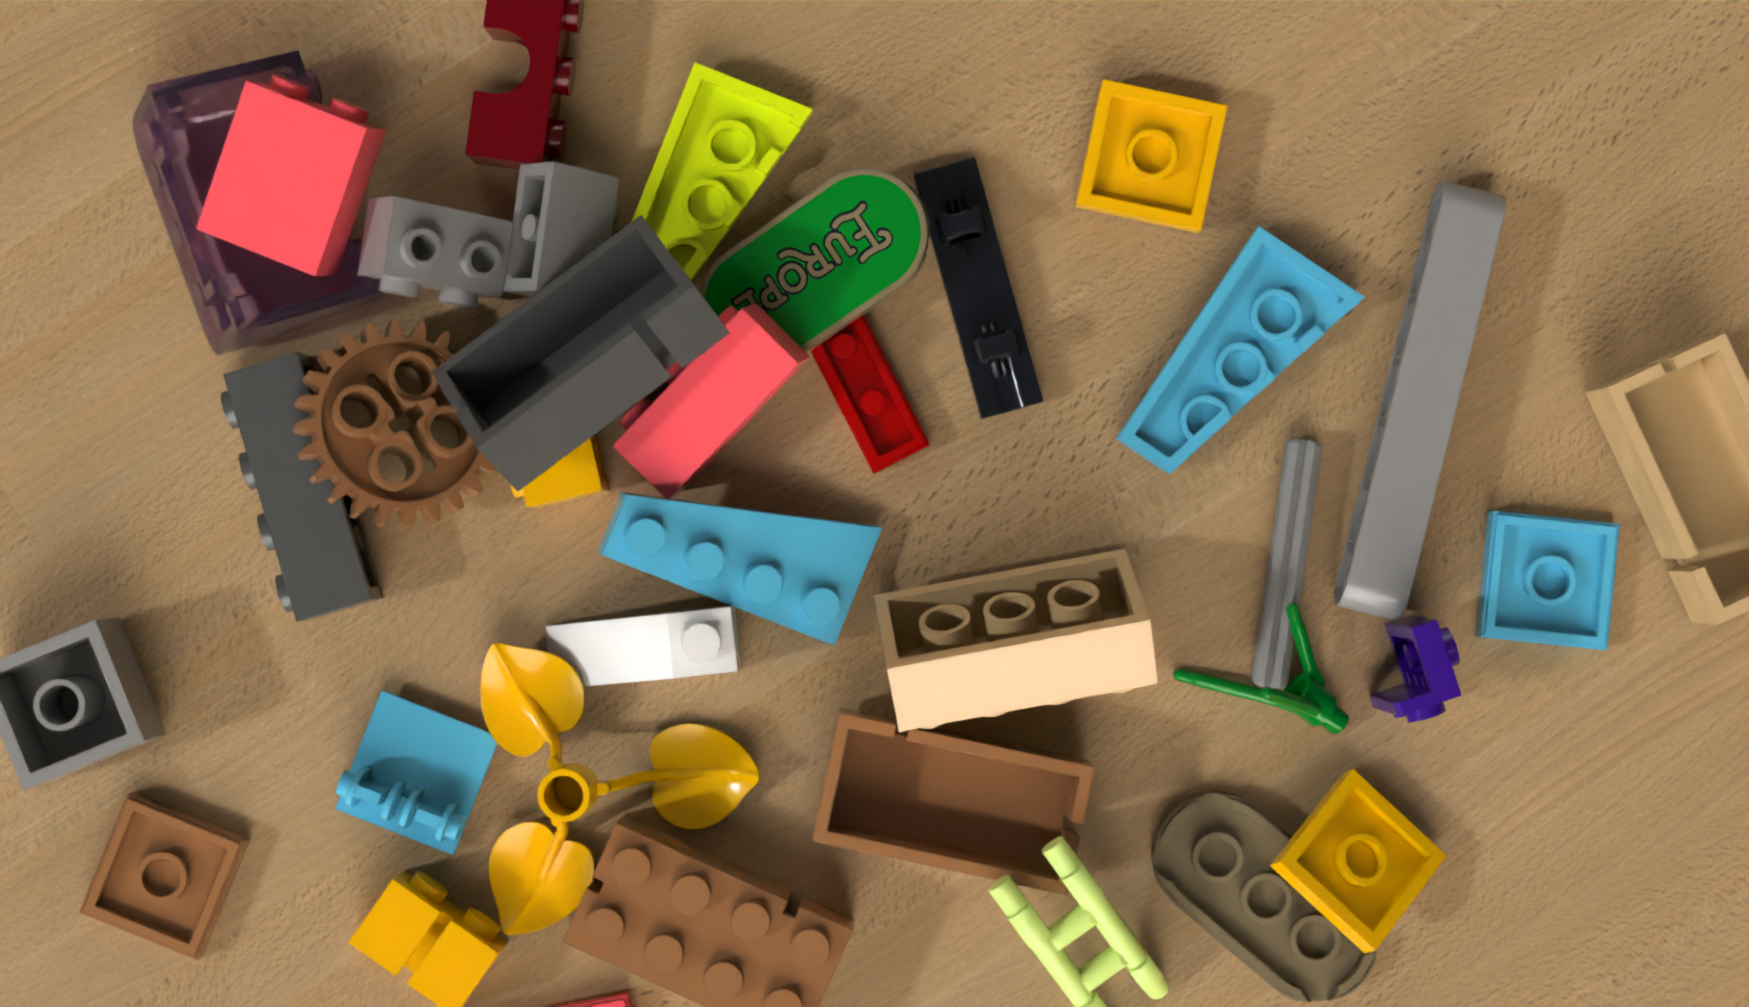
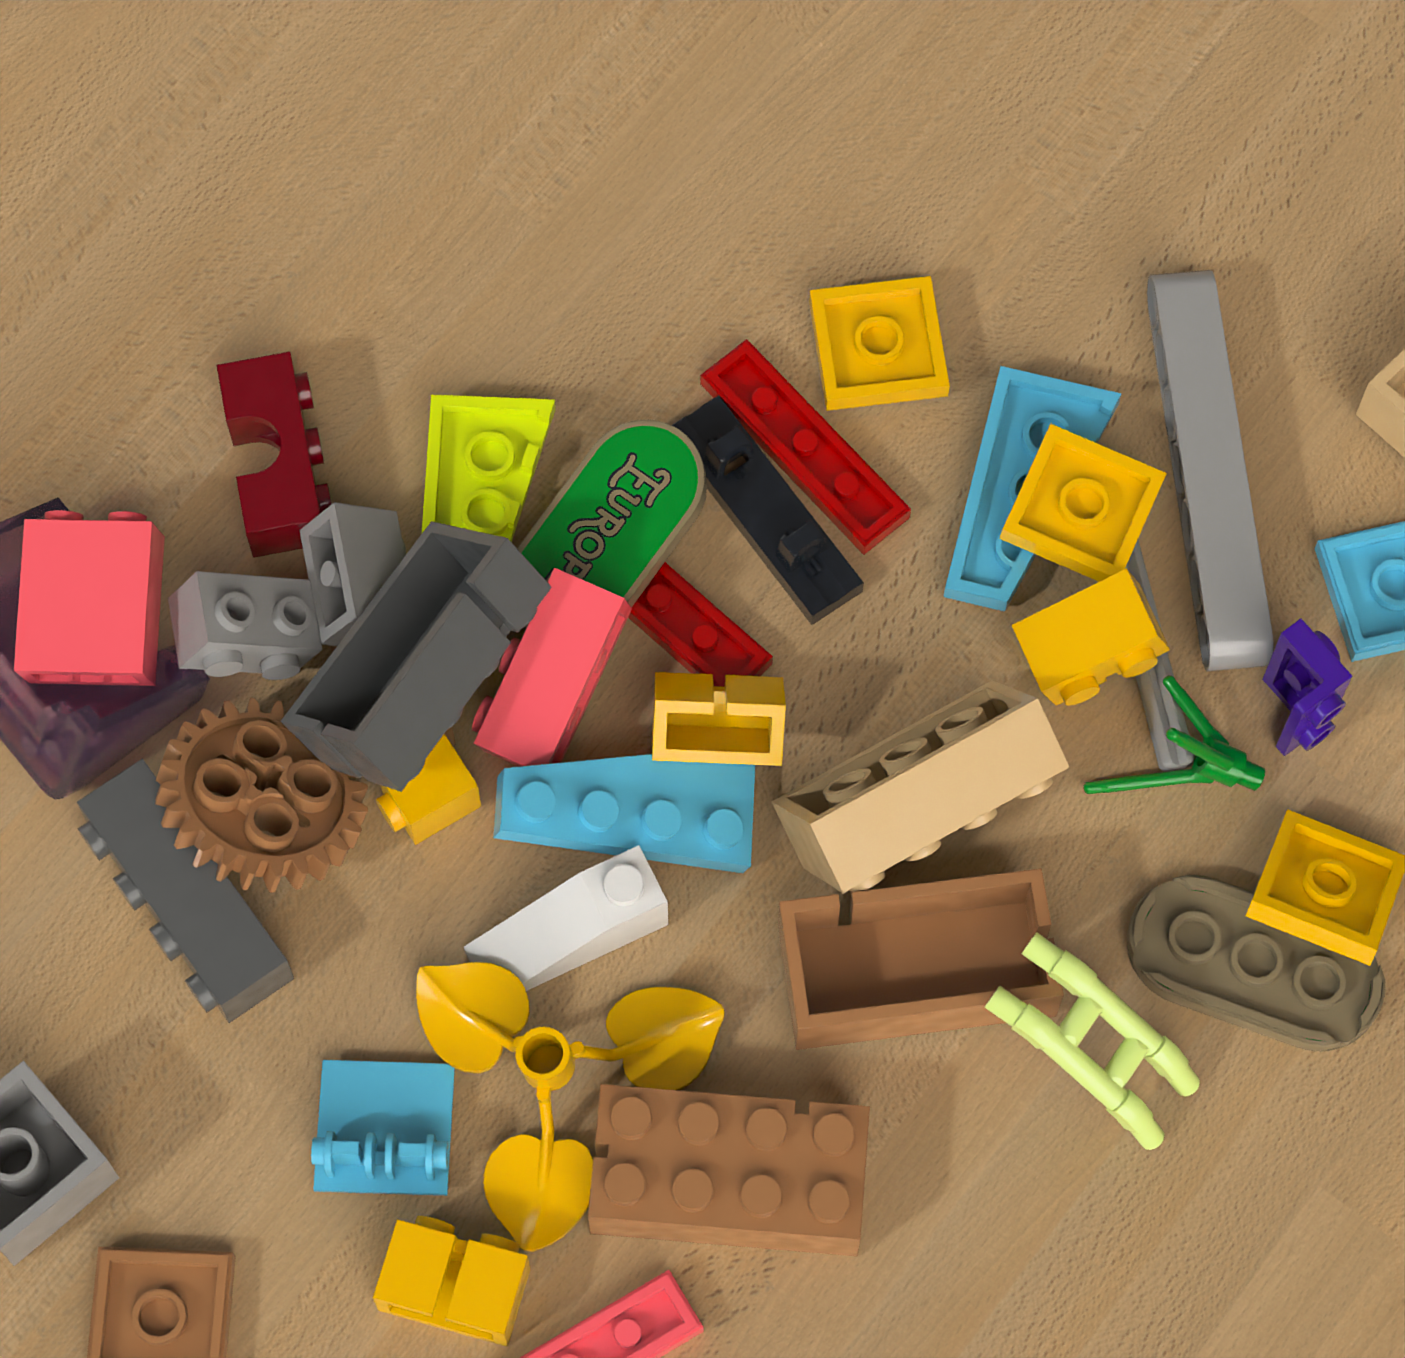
camera: 20 degrees left, 20 degrees down
(850, 503) = (718, 723): none -> yellow piece
(1040, 235) = (806, 447): none -> red tile
(1234, 545) = (1090, 638): none -> yellow piece
(1279, 408) = (1082, 505): none -> yellow plate

